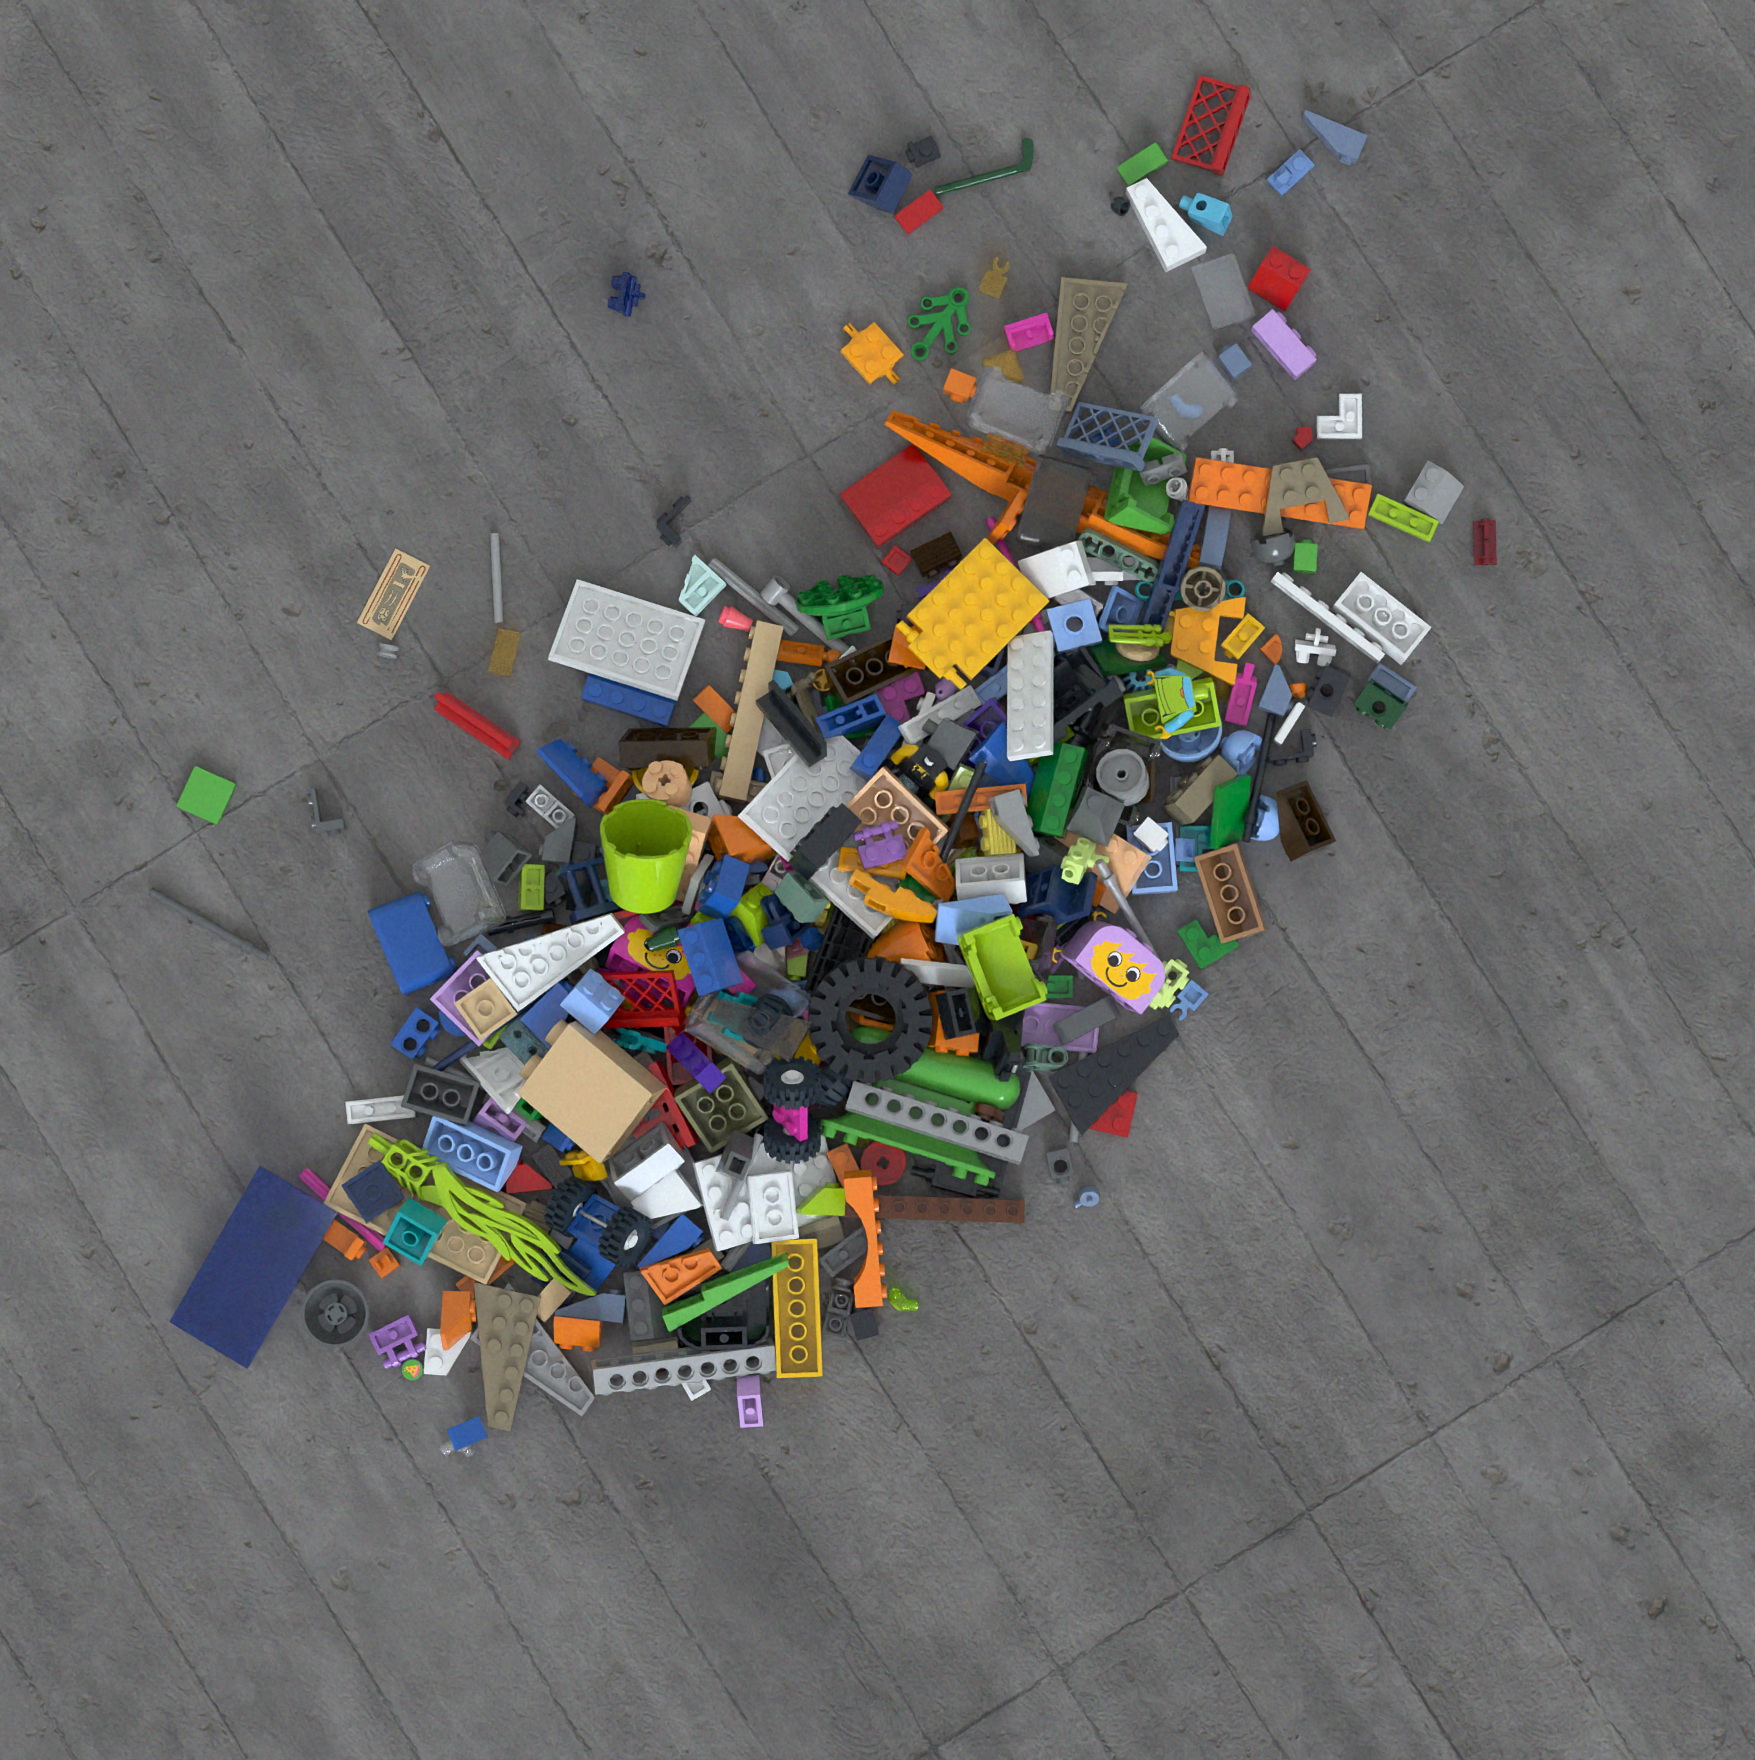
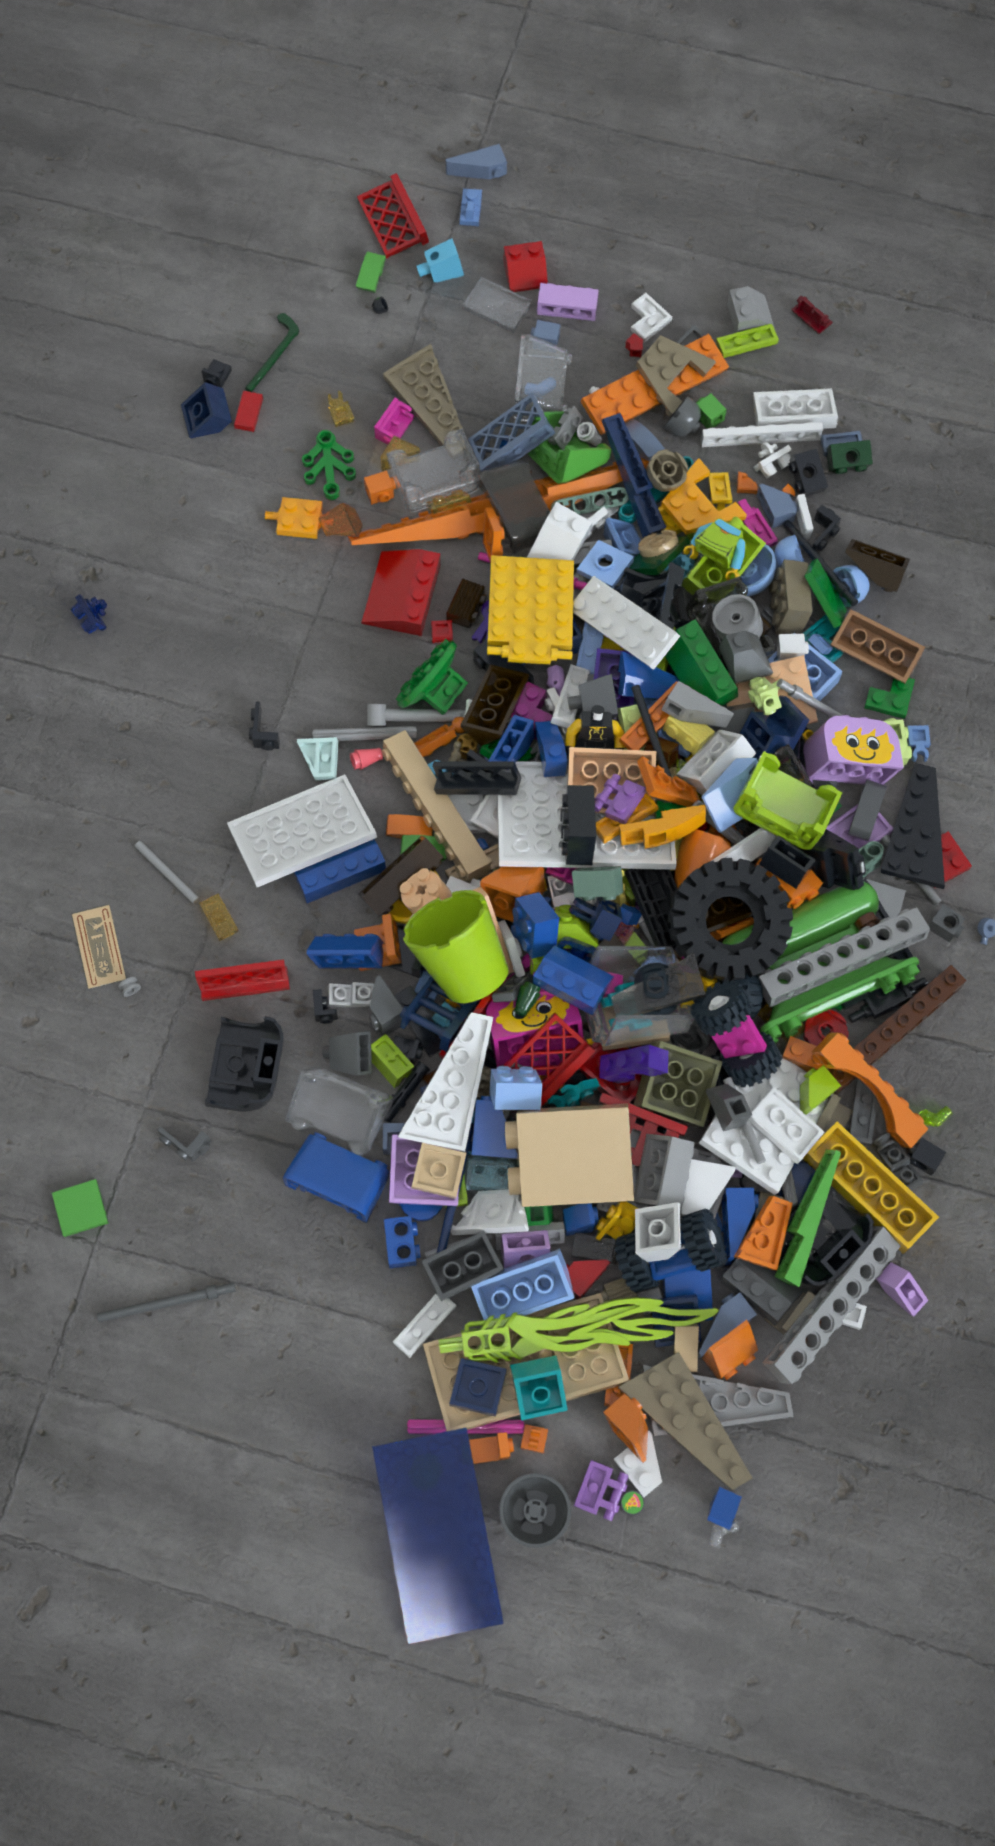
camera: 45 degrees left, 15 degrees down
(419, 793) = (245, 1065): none -> black piece
(596, 1200) = (657, 1232): none -> white slope
(900, 393) = (341, 521): none -> clear orange slope
(901, 653) = (506, 672): orange piece -> none
(1139, 637) = (655, 534): lime piece -> none
(1165, 229) = (421, 294): white wedge -> none

